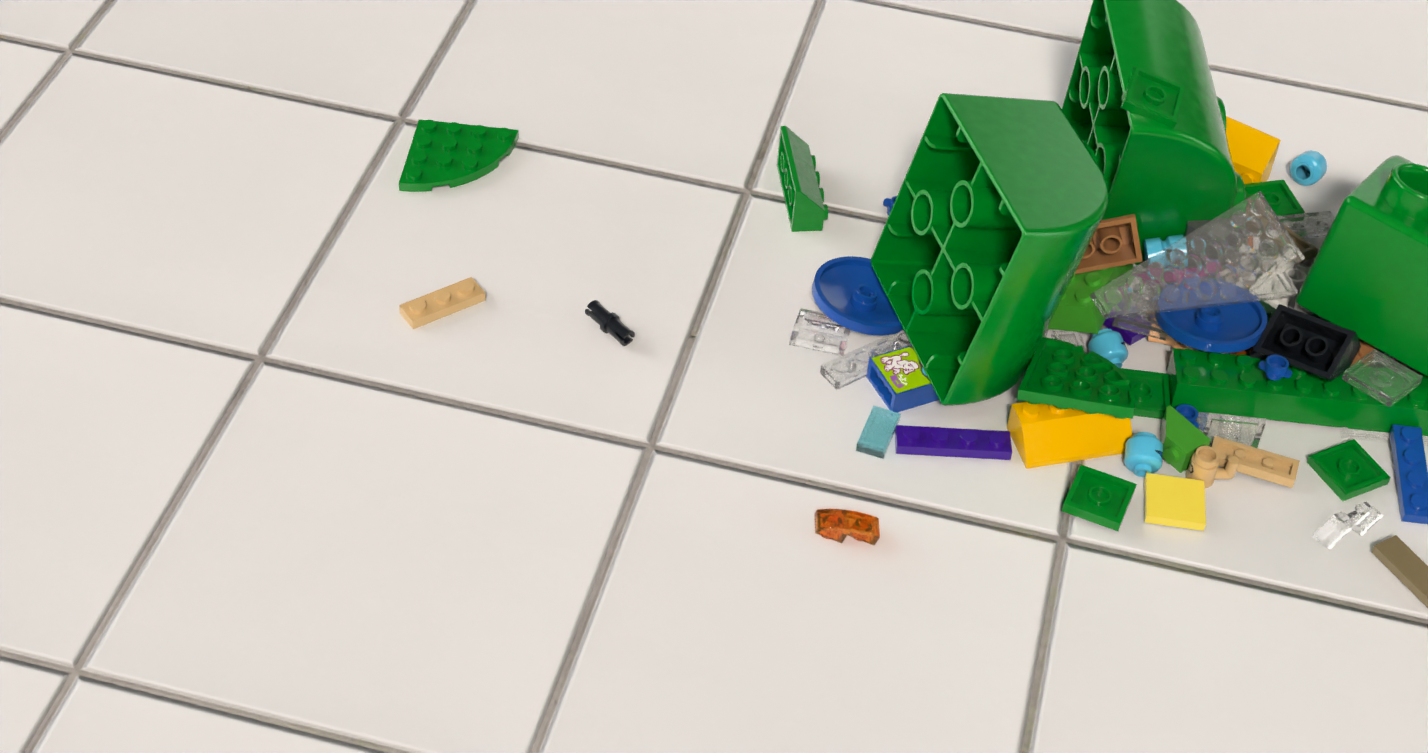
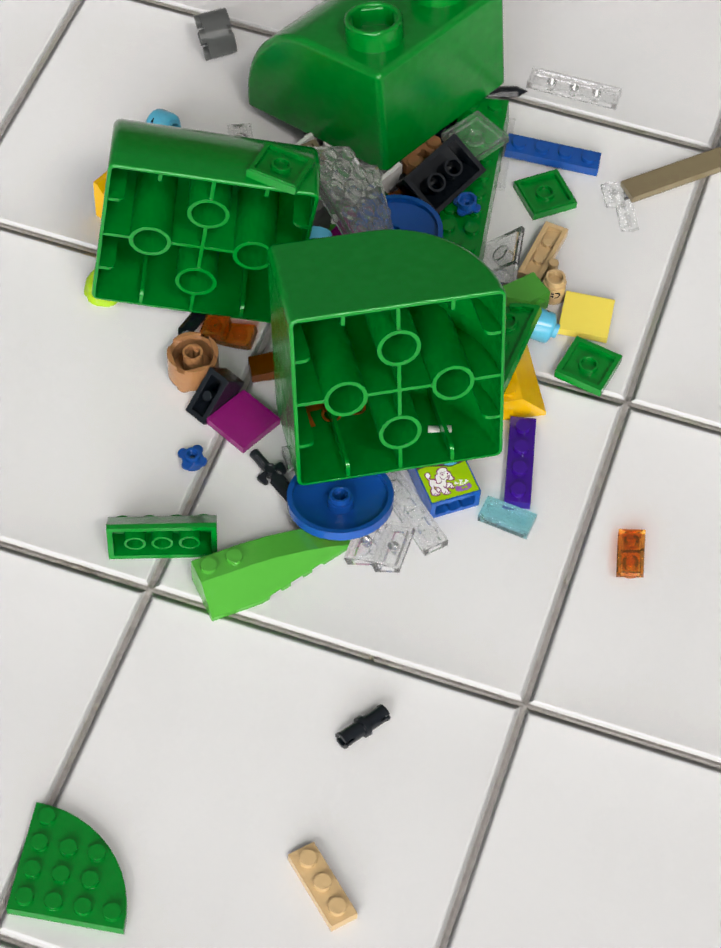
camera: 85 degrees left, 10 degrees up
(773, 245) = (258, 568): none -> bright green wedge

